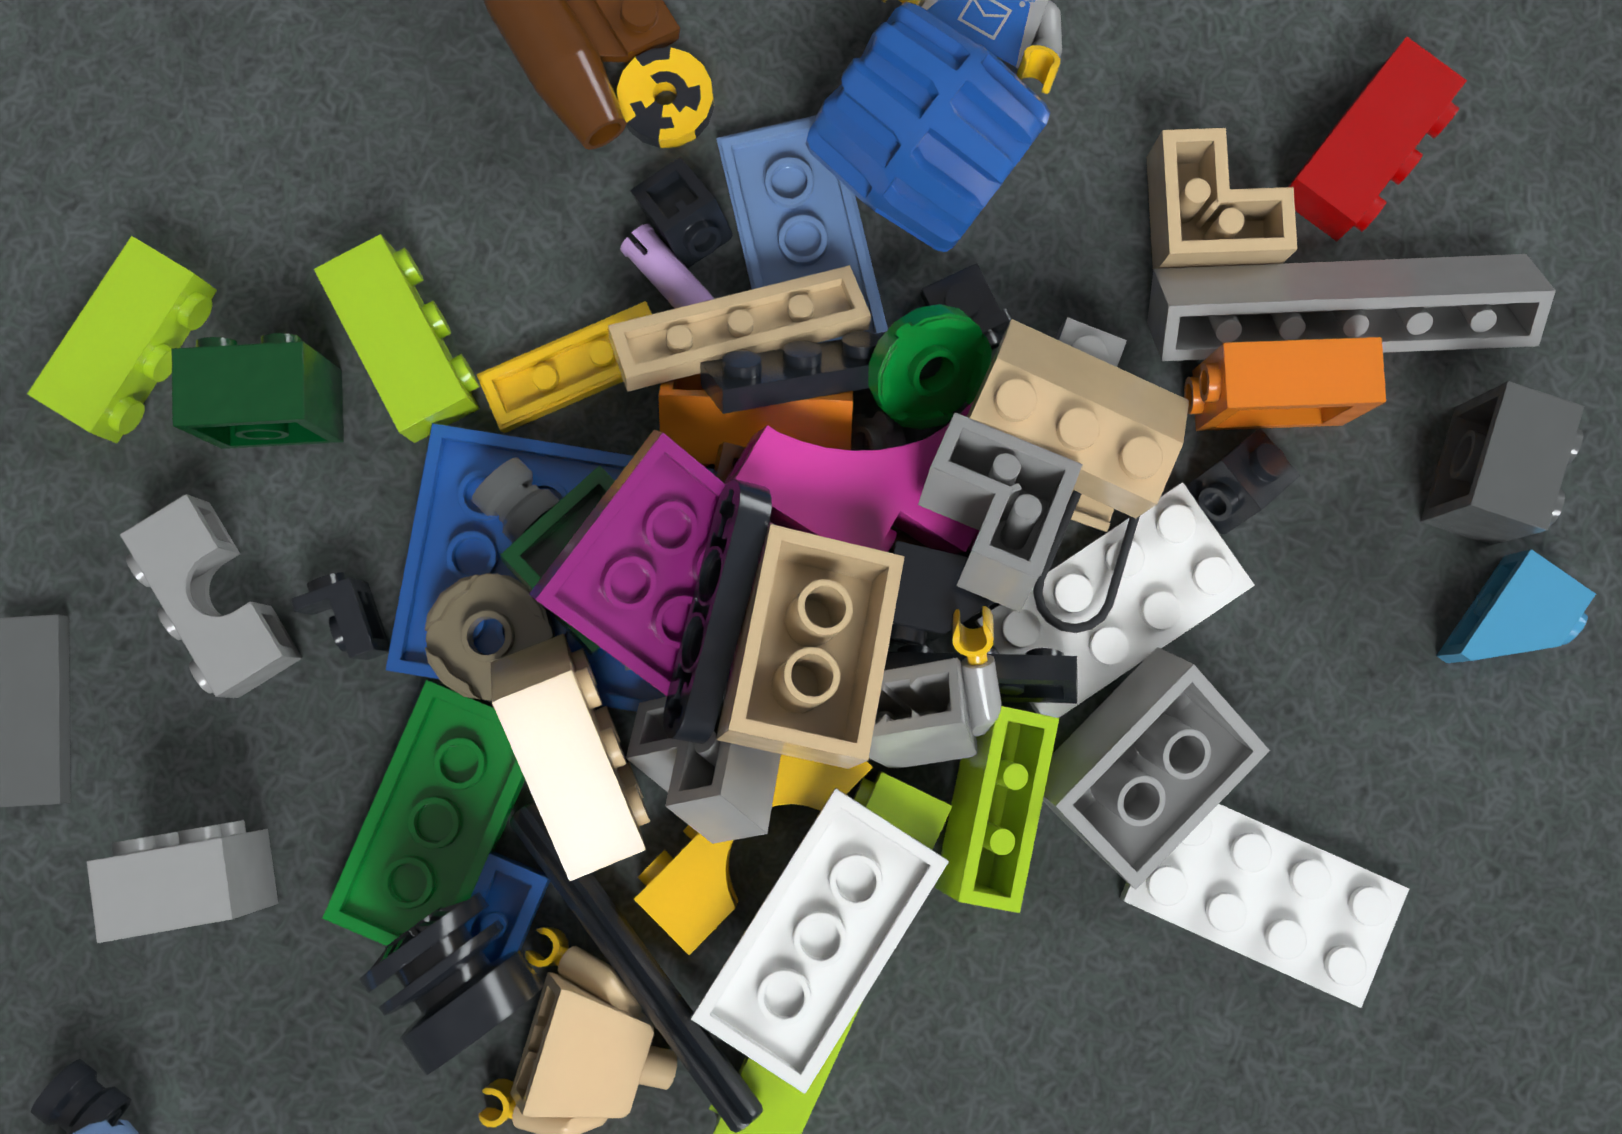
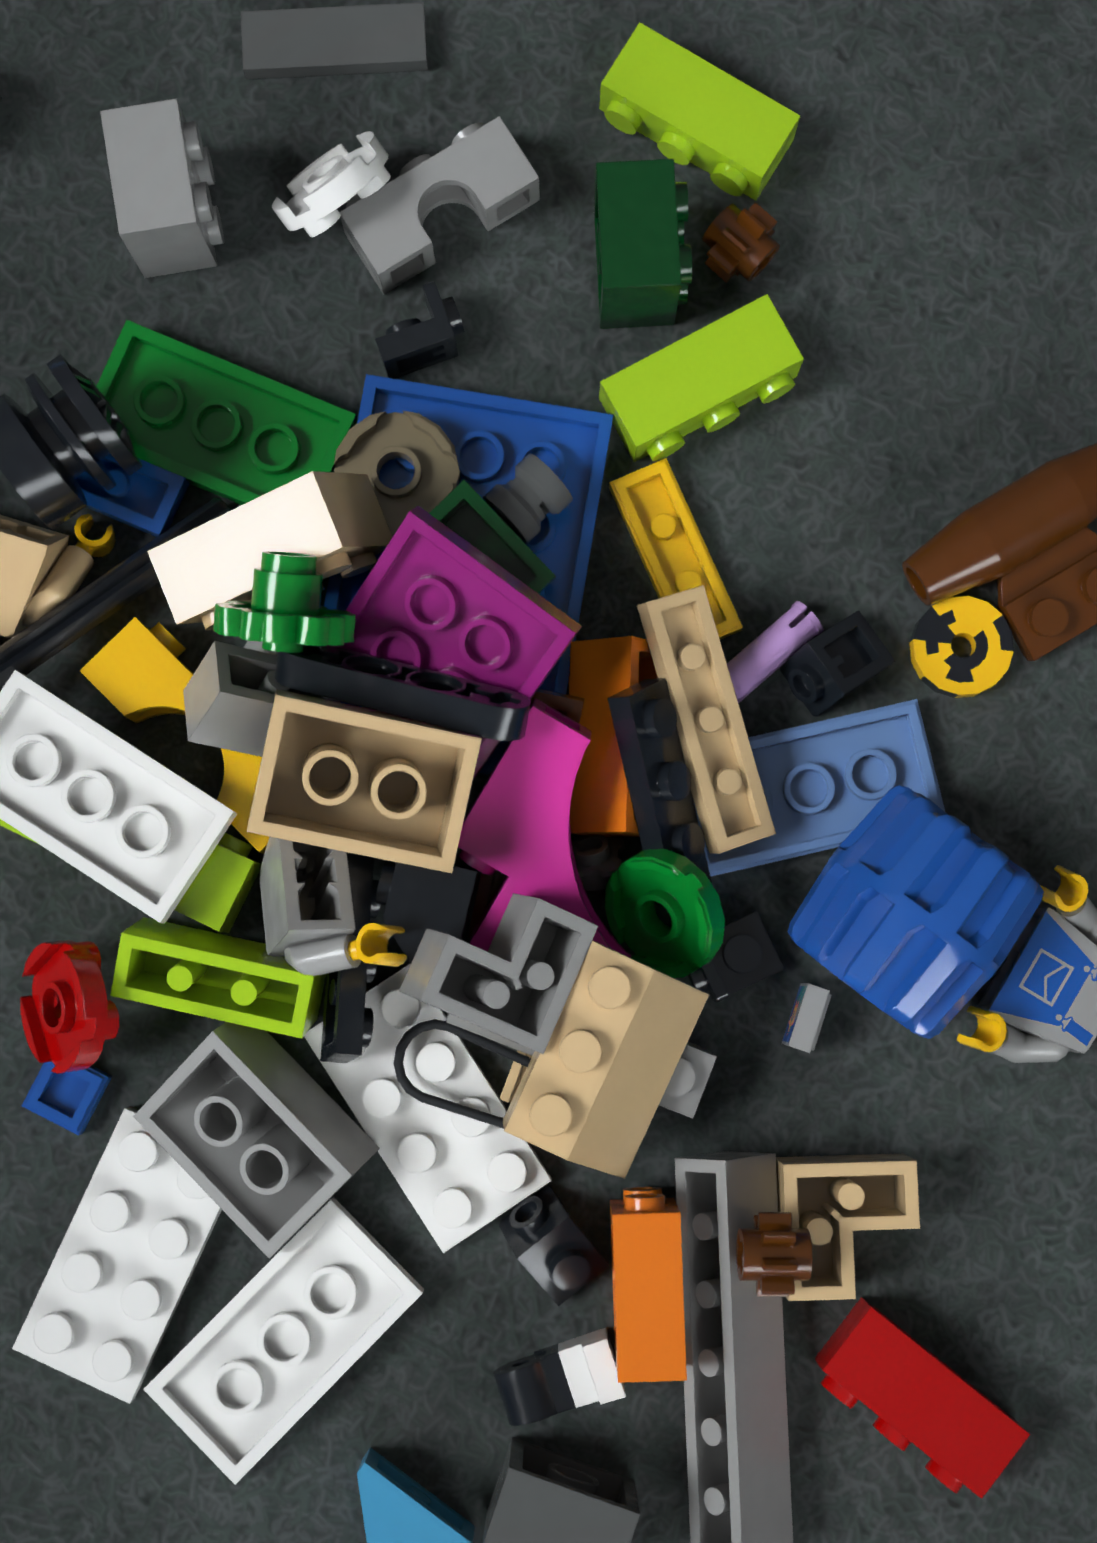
camera: 90 degrees right, 0 degrees up
(184, 704) = (331, 183): none -> white plate
(259, 298) = (741, 242): none -> reddish brown gear
(635, 728) = (285, 607): none -> green plant
(1024, 241) = (806, 1017): none -> light grey tile
(1028, 958) = (68, 1005): none -> red plate
(1107, 961) = (67, 1097): none -> blue tile
(1258, 257) = (774, 1254): none -> reddish brown gear
(1345, 739) = (284, 1340): none -> white plate
(1368, 471) = (560, 1379): none -> leg

